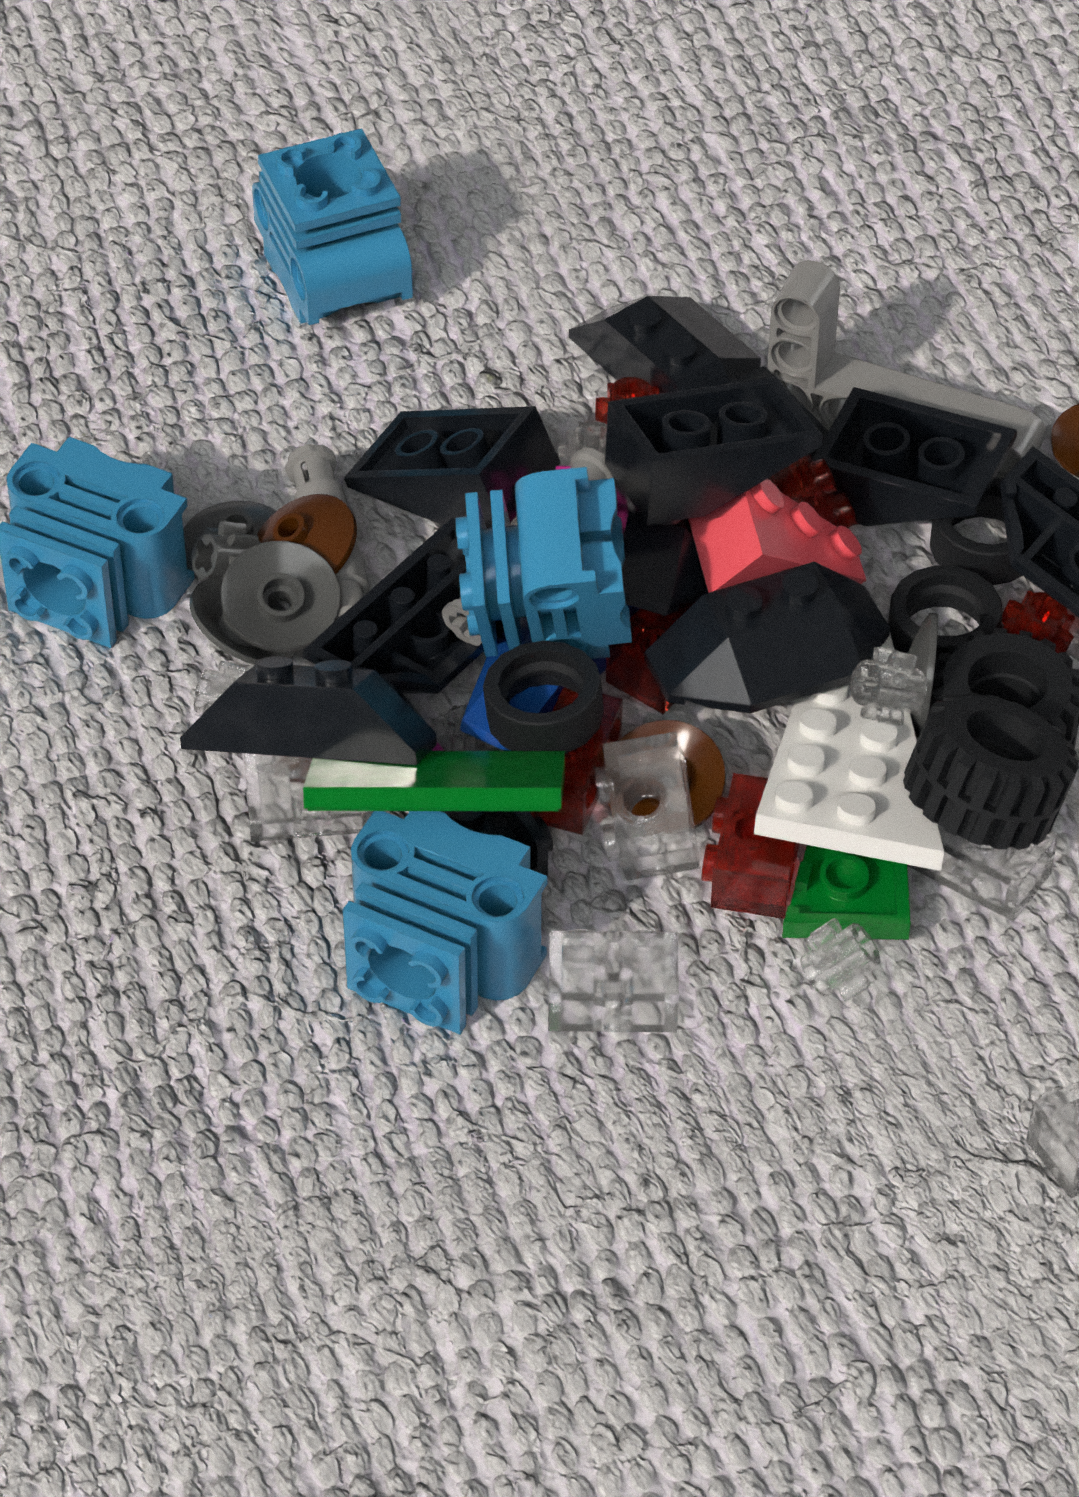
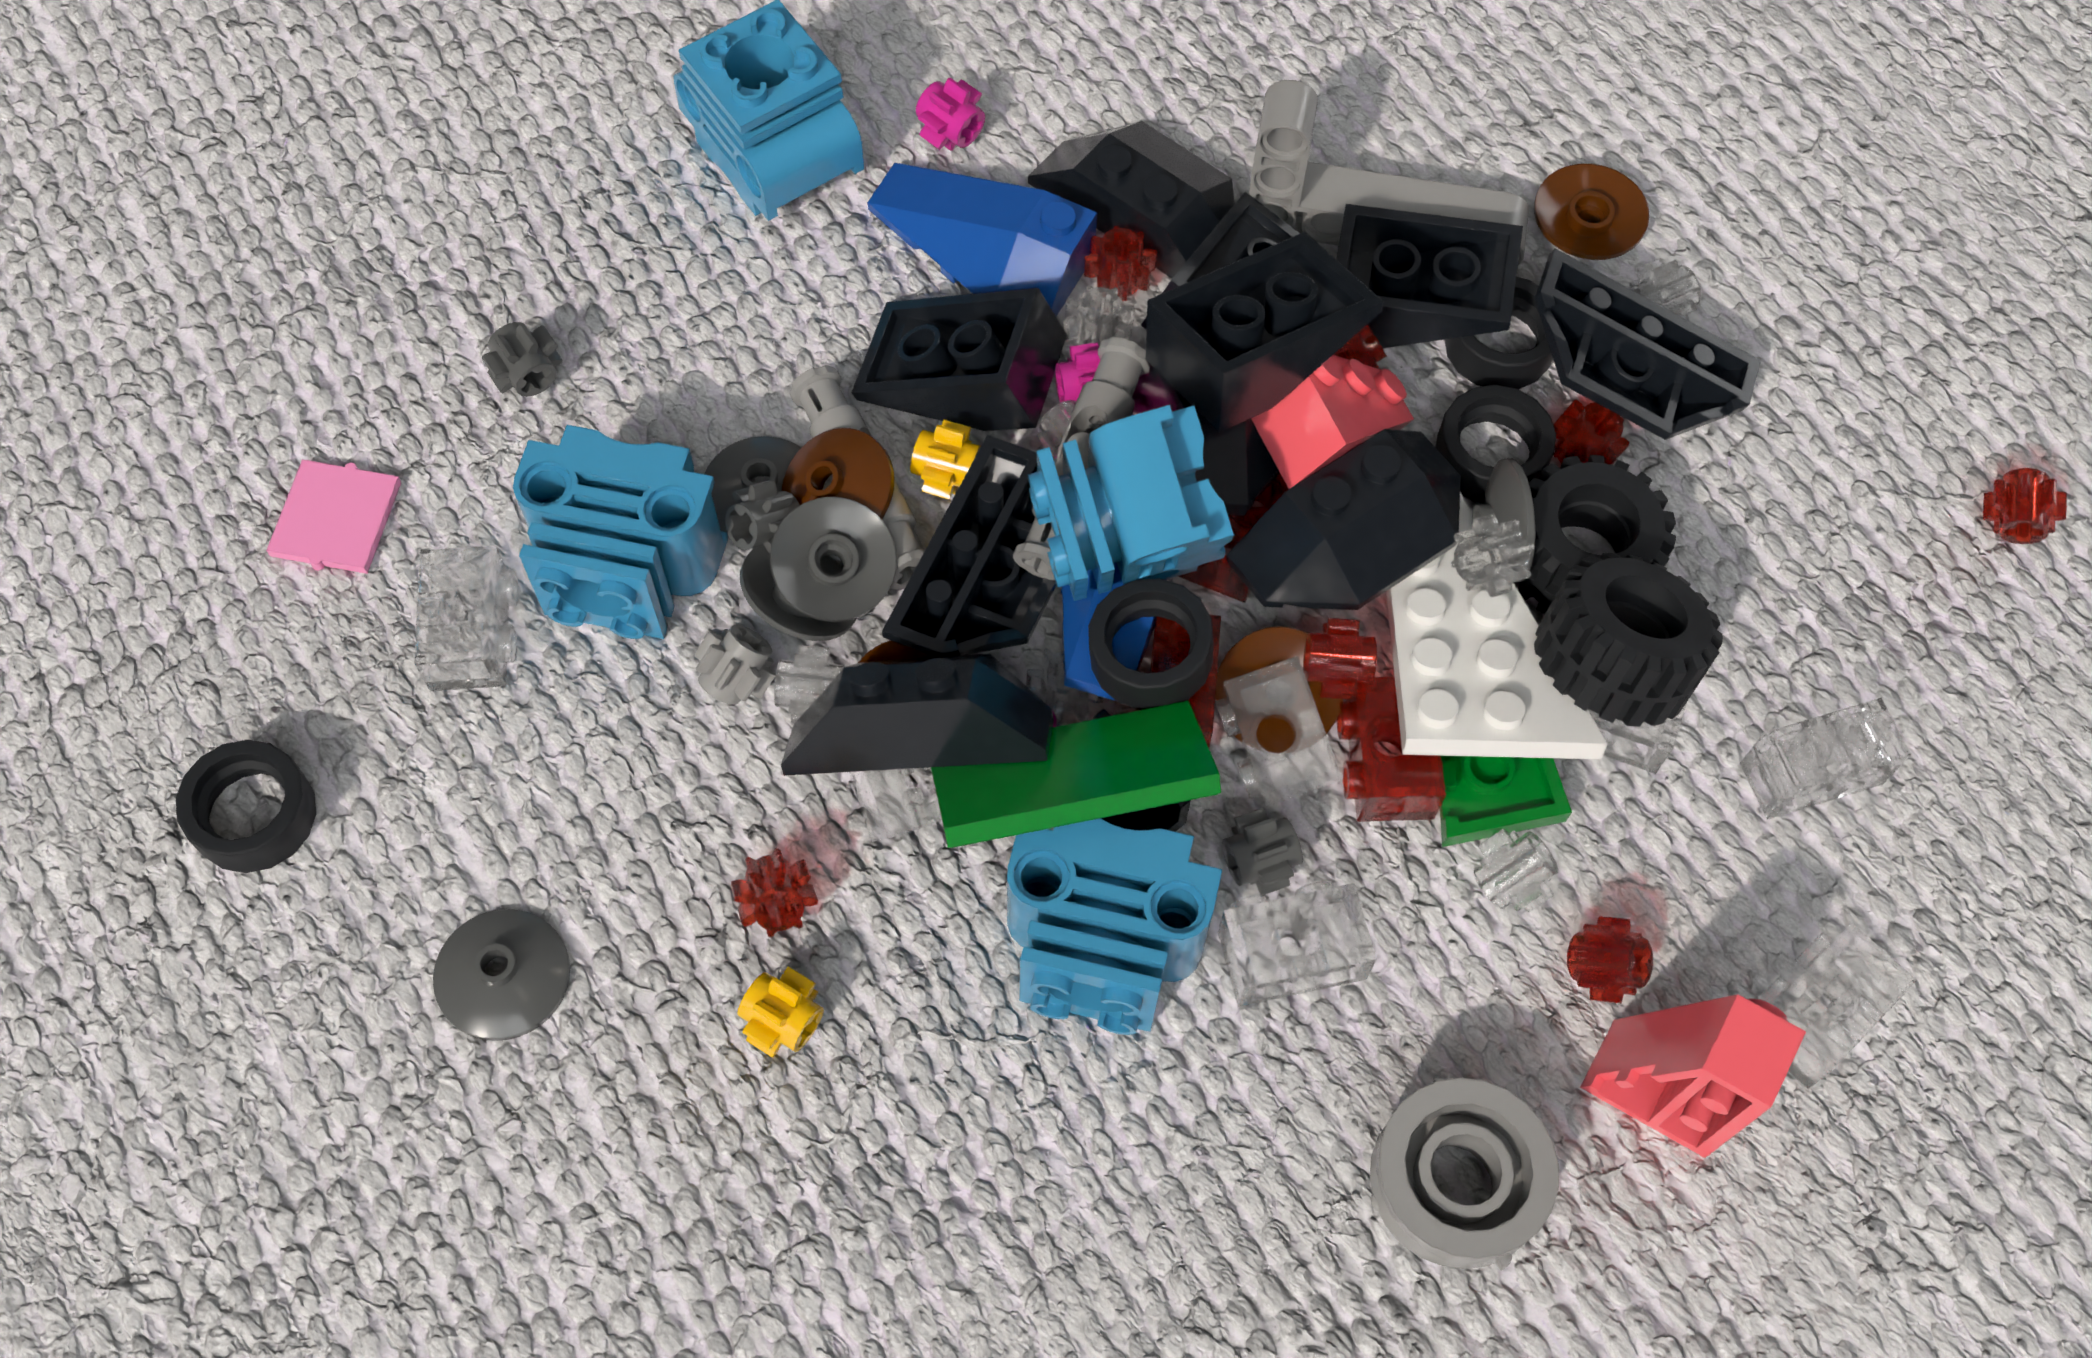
camera: 15 degrees left, 15 degrees up
(47, 397) = (522, 359): none -> dark grey gear
(125, 941) = (780, 1011): none -> yellow gear
(158, 863) = (774, 893): none -> clear red gear
(166, 669) = (734, 664): none -> light grey gear
(405, 533) = (943, 458): none -> yellow gear
(507, 263) = (950, 114): none -> dark pink gear
(515, 364) = (988, 230): none -> blue wedge
(605, 898) = (1262, 851): none -> dark grey gear
(707, 1136) = (1497, 1132): none -> light grey piece
(719, 747) = (1340, 658): none -> clear red gear
(905, 1045) = (1610, 959): none -> clear red gear
(949, 1131) = (1696, 1068): none -> coral wedge

